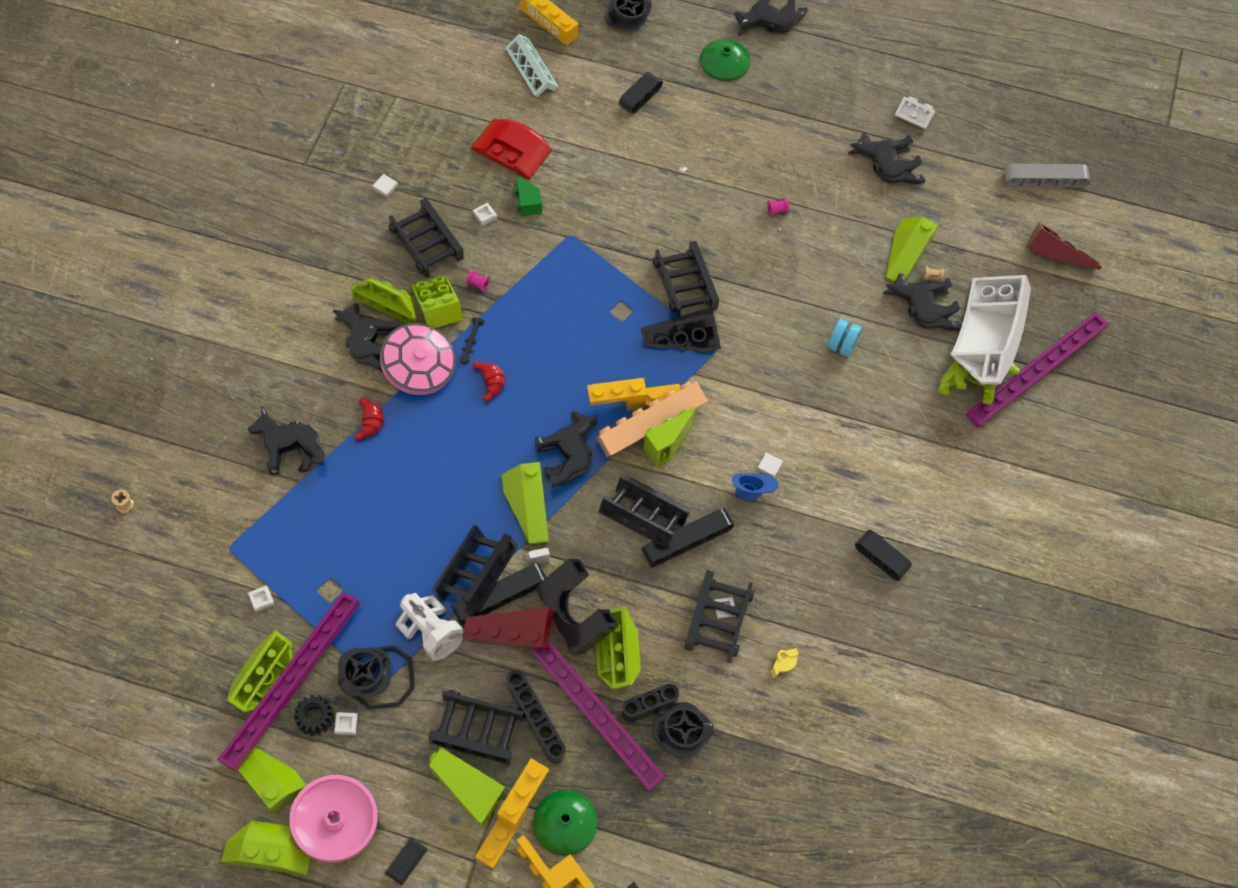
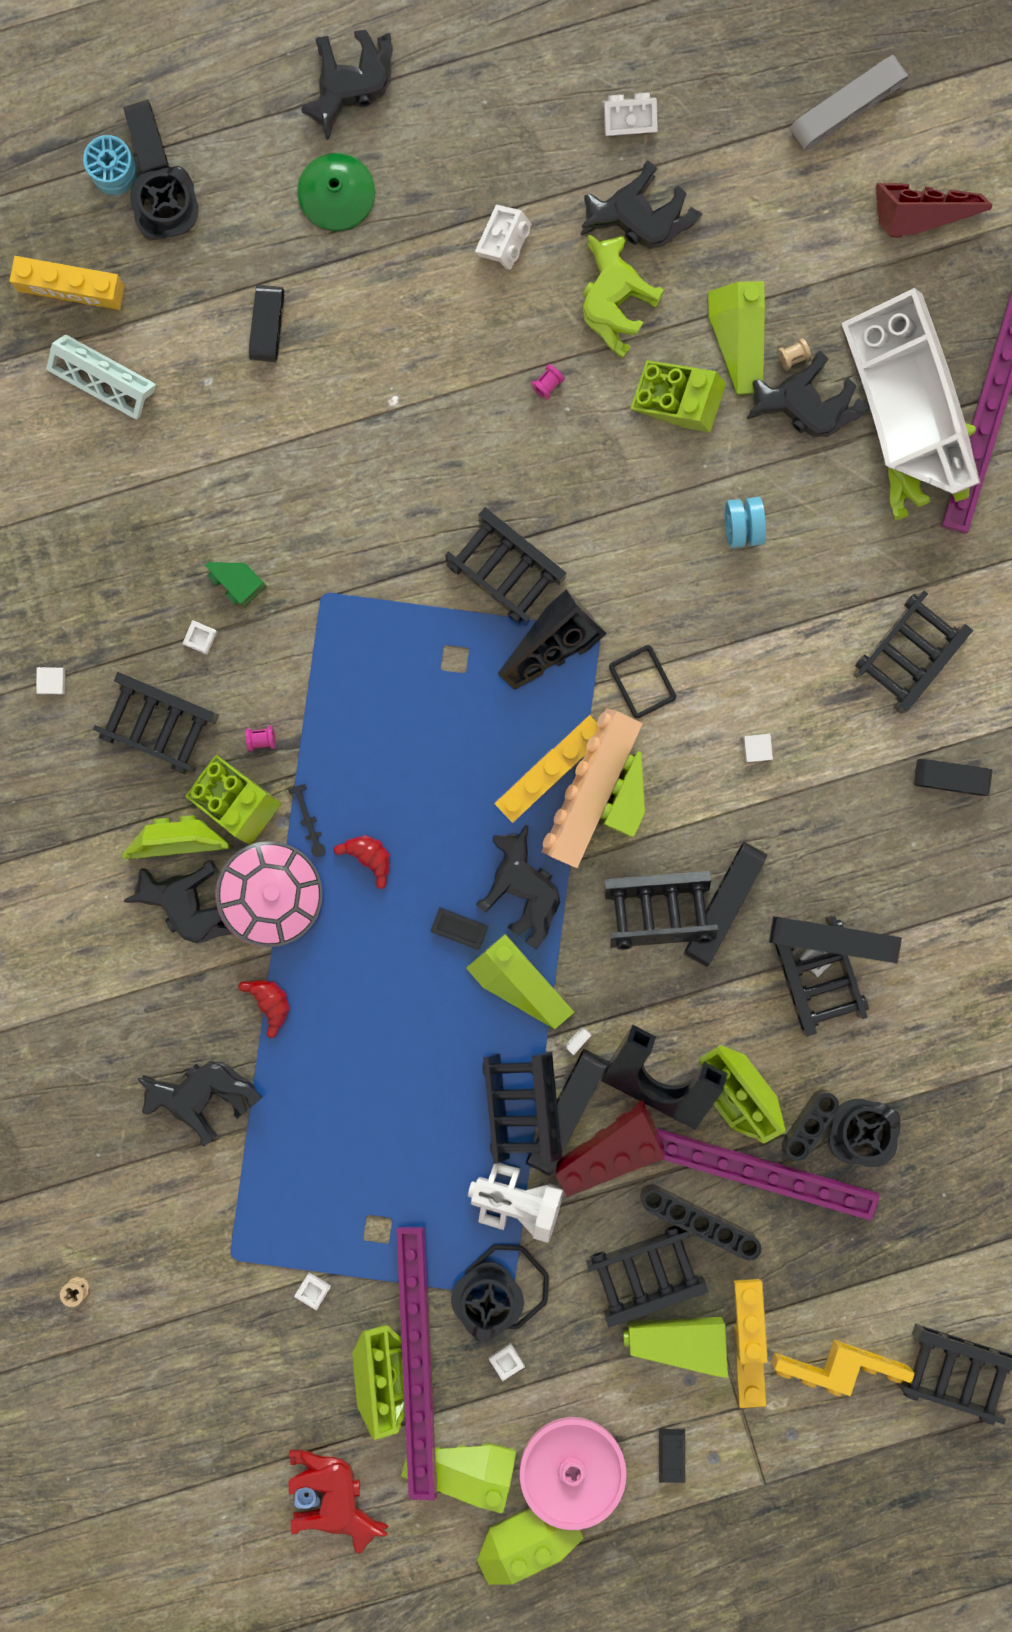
camera: 30 degrees left, 25 degrees up
(154, 713) = (302, 1501): none -> light blue plate
(170, 736) = (338, 1508): none -> red animal
(305, 706) = (461, 1393): black tyre -> none
(513, 146) = (163, 513): red slope -> none
(514, 449) = (459, 928): none -> black tile
(561, 836) = (796, 1292): green dish -> none
(739, 388) = (661, 671): none -> black piece
(743, 592) = (835, 940): none -> black beam
(752, 486) = (761, 790): blue piece -> none
(784, 662) = (921, 978): light yellow piece -> none
(804, 128) = (504, 236): none -> white bracket
(845, 185) = (610, 290): none -> lime animal
(851, 257) = (679, 395): none -> lime slope
(900, 487) = (938, 656): none -> black fence

